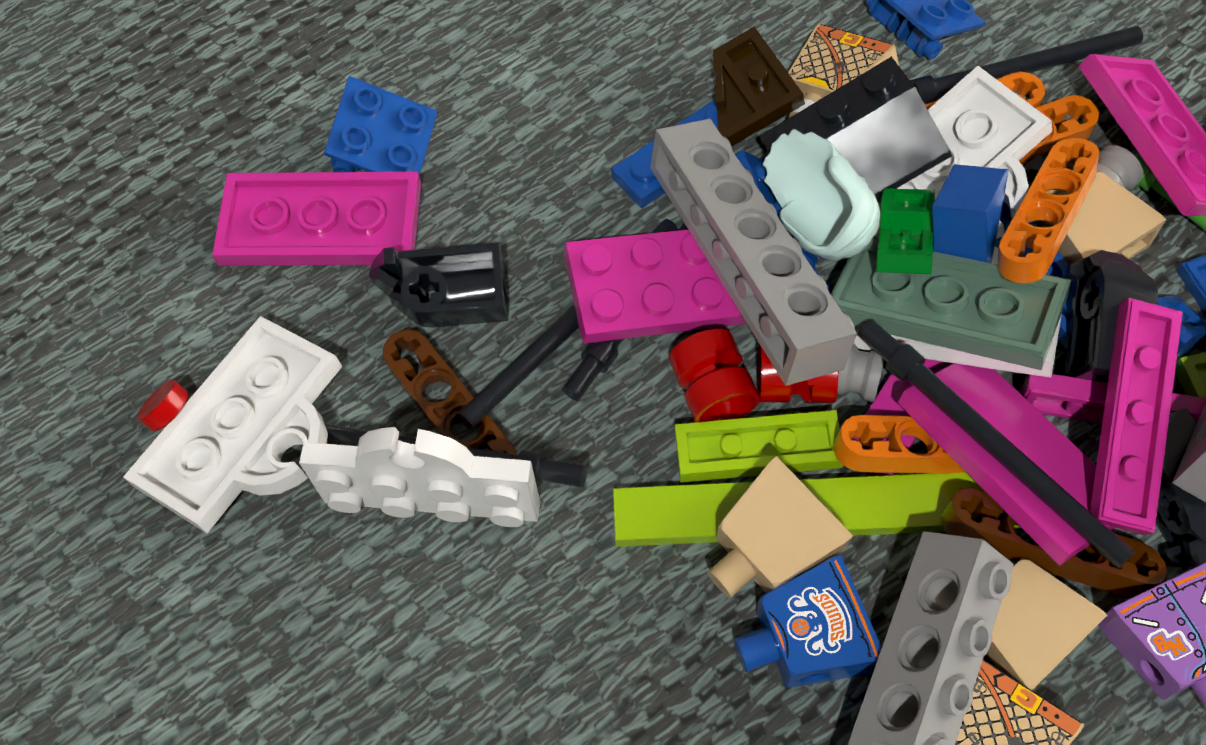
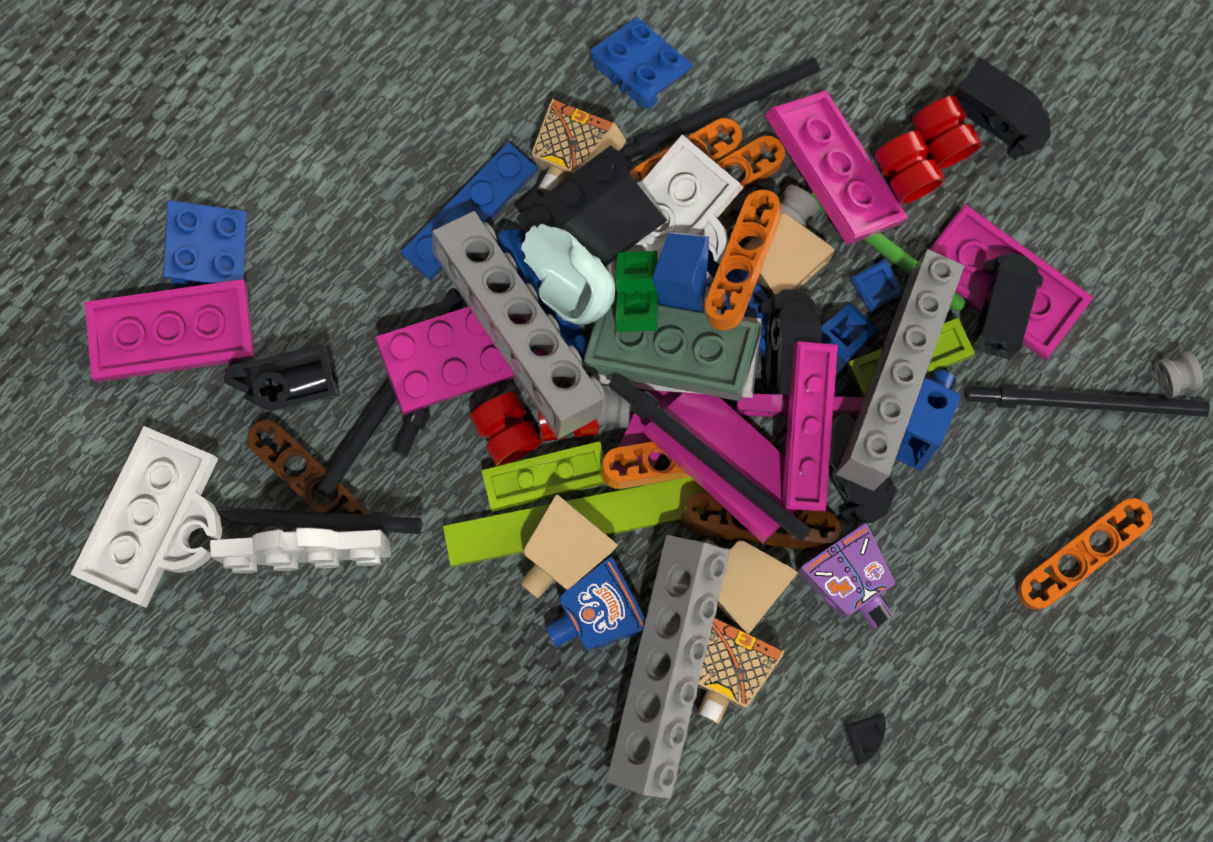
camera: 15 degrees left, 15 degrees up
(163, 405) = (84, 511): red tile -> none
(751, 87) = (503, 170): dark brown wing -> none

